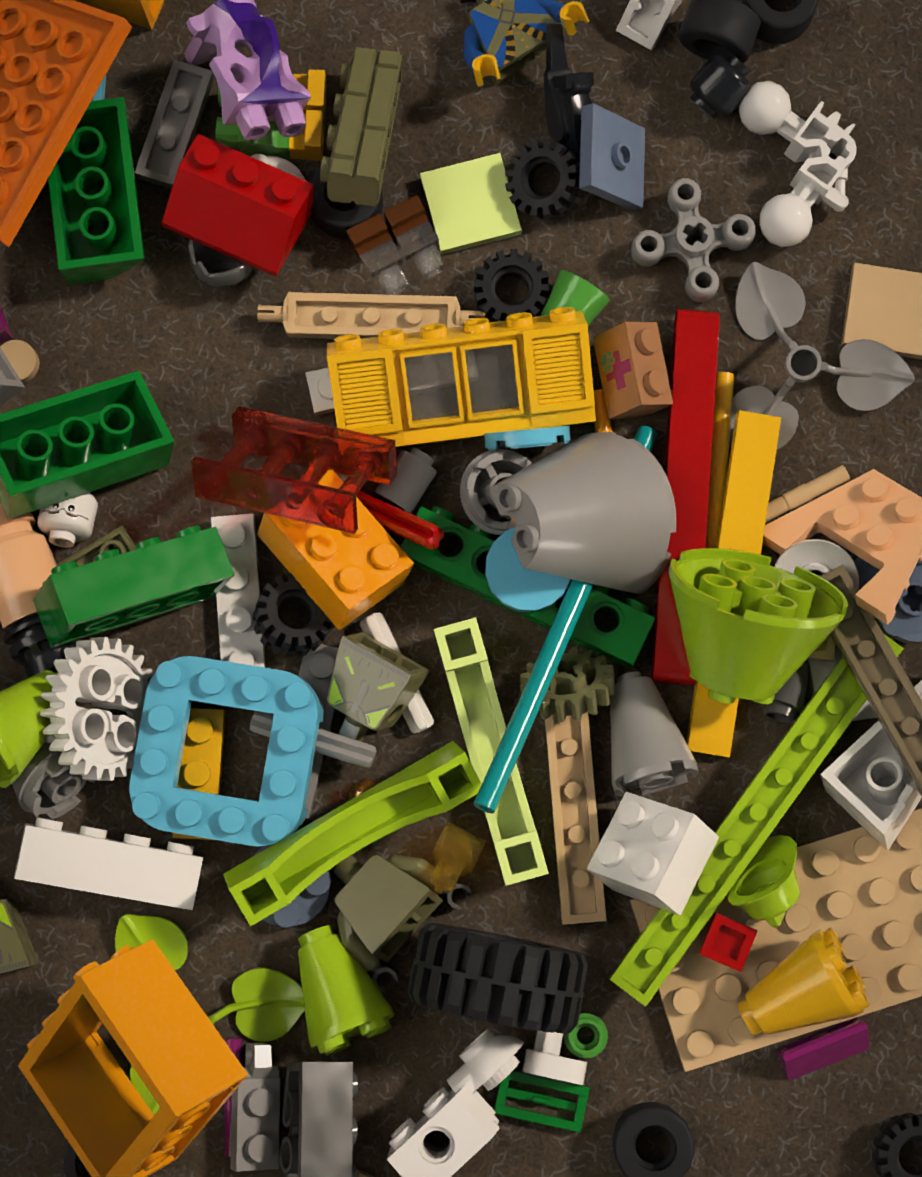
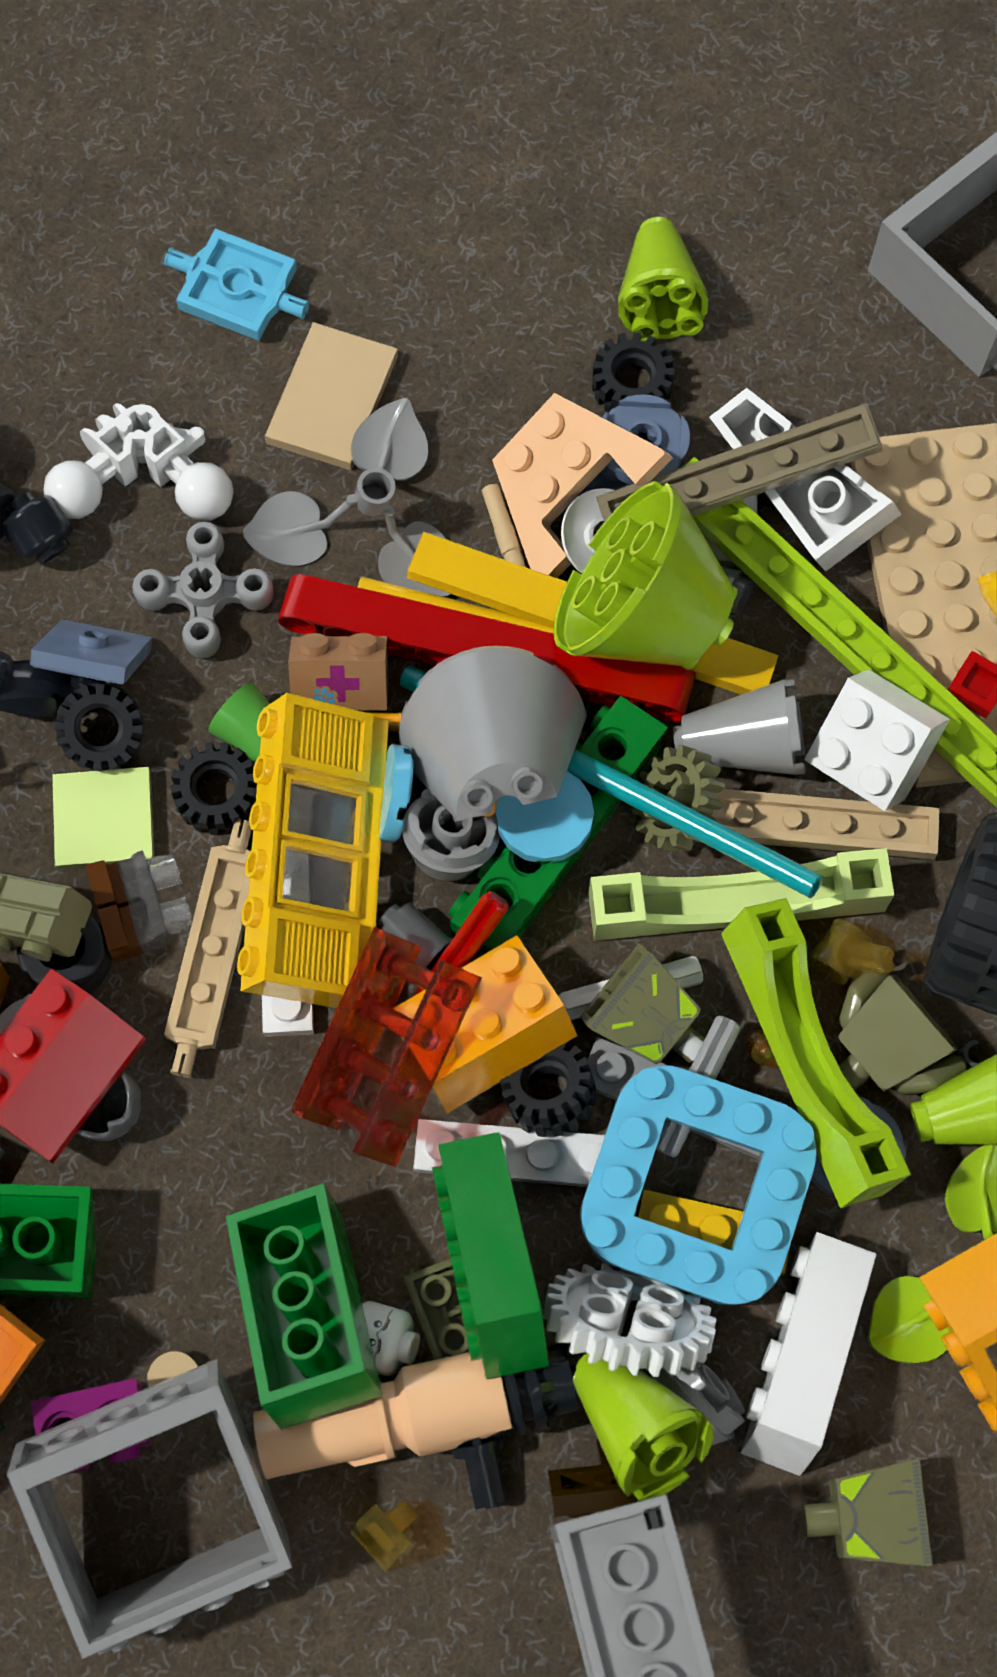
camera: 85 degrees left, 10 degrees down
(768, 882) = (922, 627): lime piece -> none

